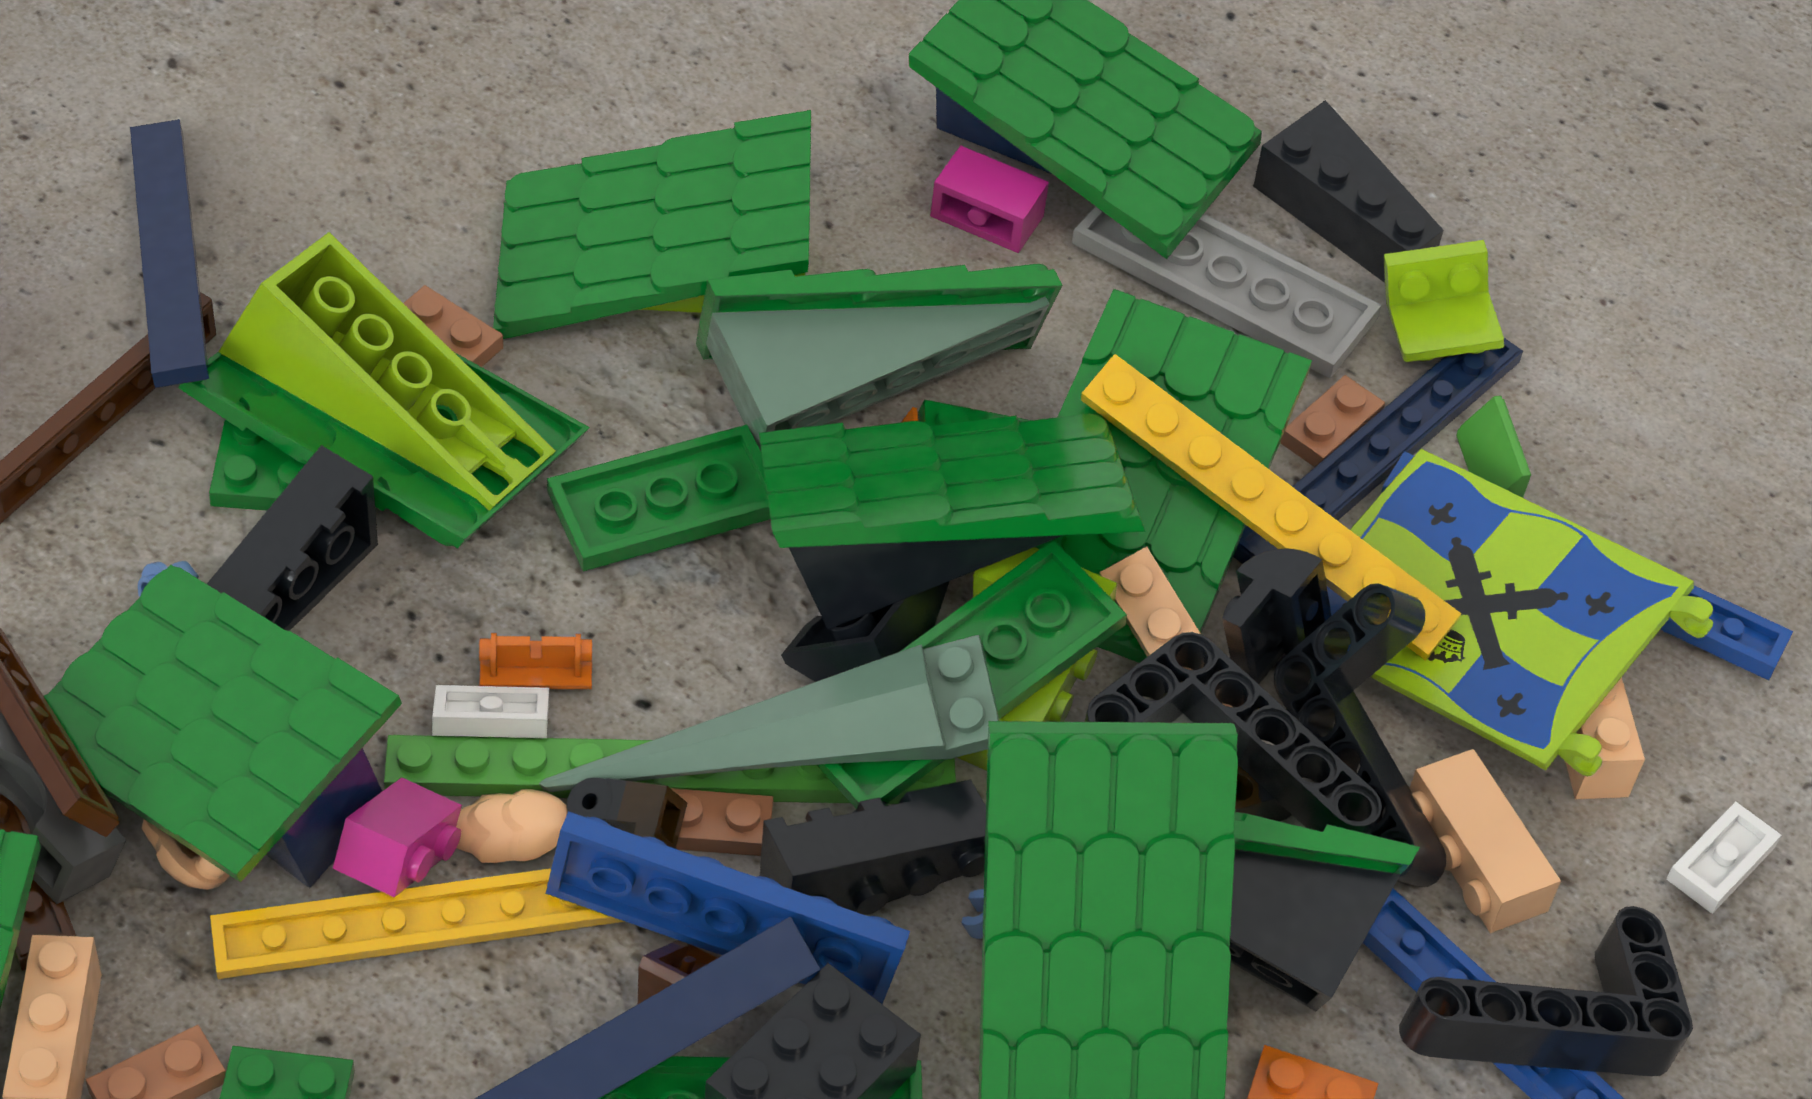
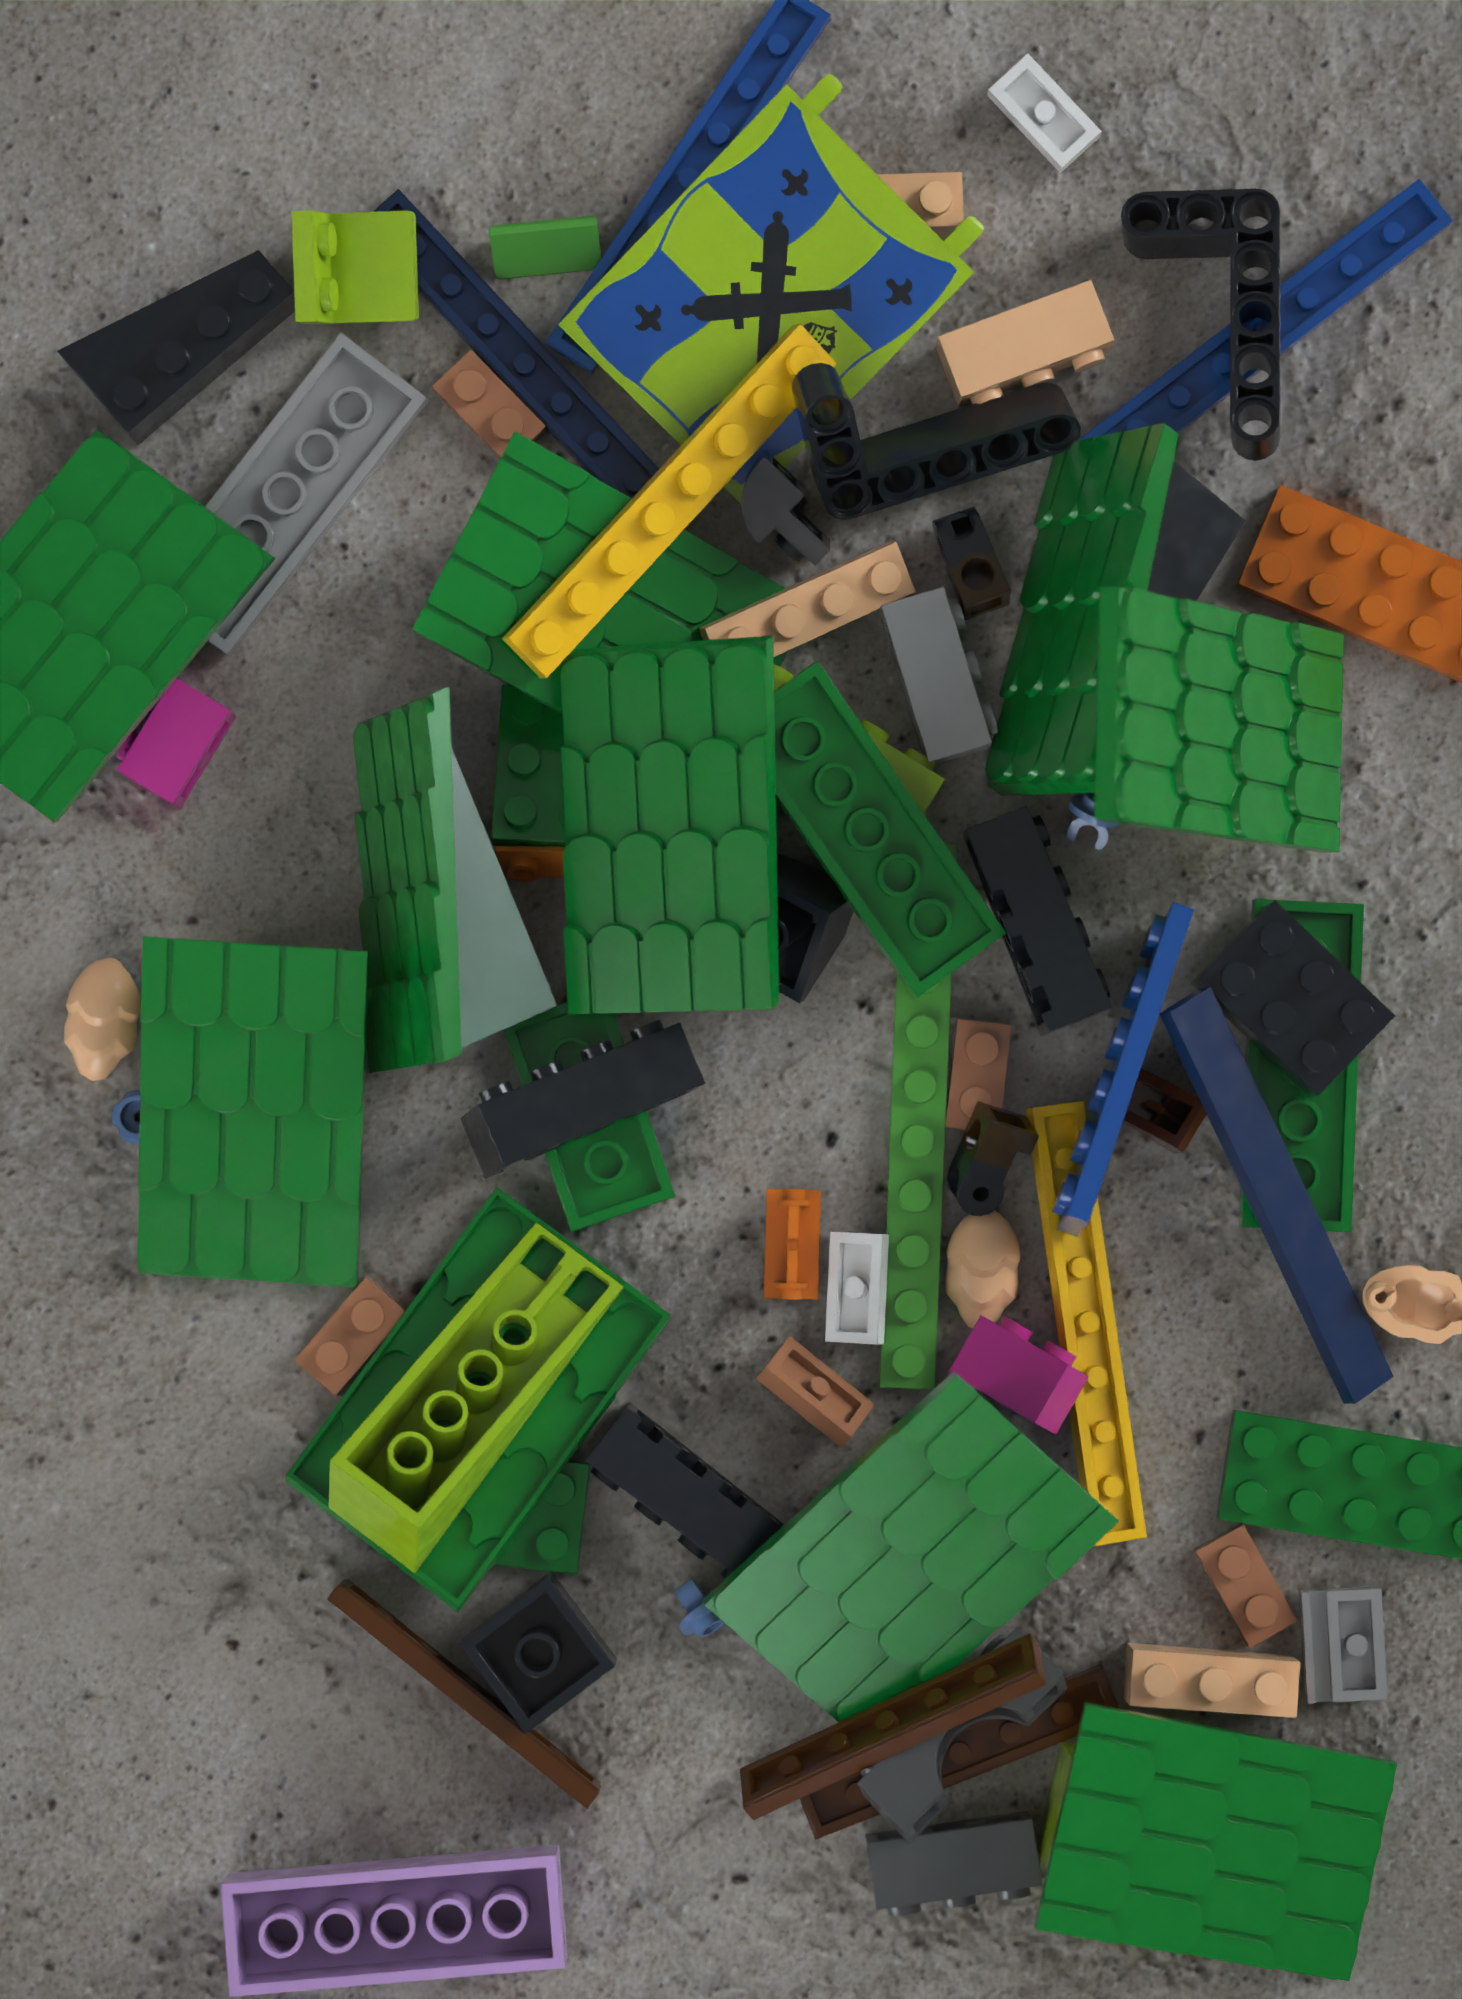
camera: 80 degrees left, 35 degrees up
(134, 451) = (538, 1652): none -> black brick
(168, 255) = (265, 1634): dark blue tile -> none
(400, 660) = (815, 1391): none -> nougat plate
(677, 457) = (581, 1097): none -> black wedge
(888, 710) = (914, 898): sand green plate -> none
(1256, 717) = (931, 564): black beam -> none

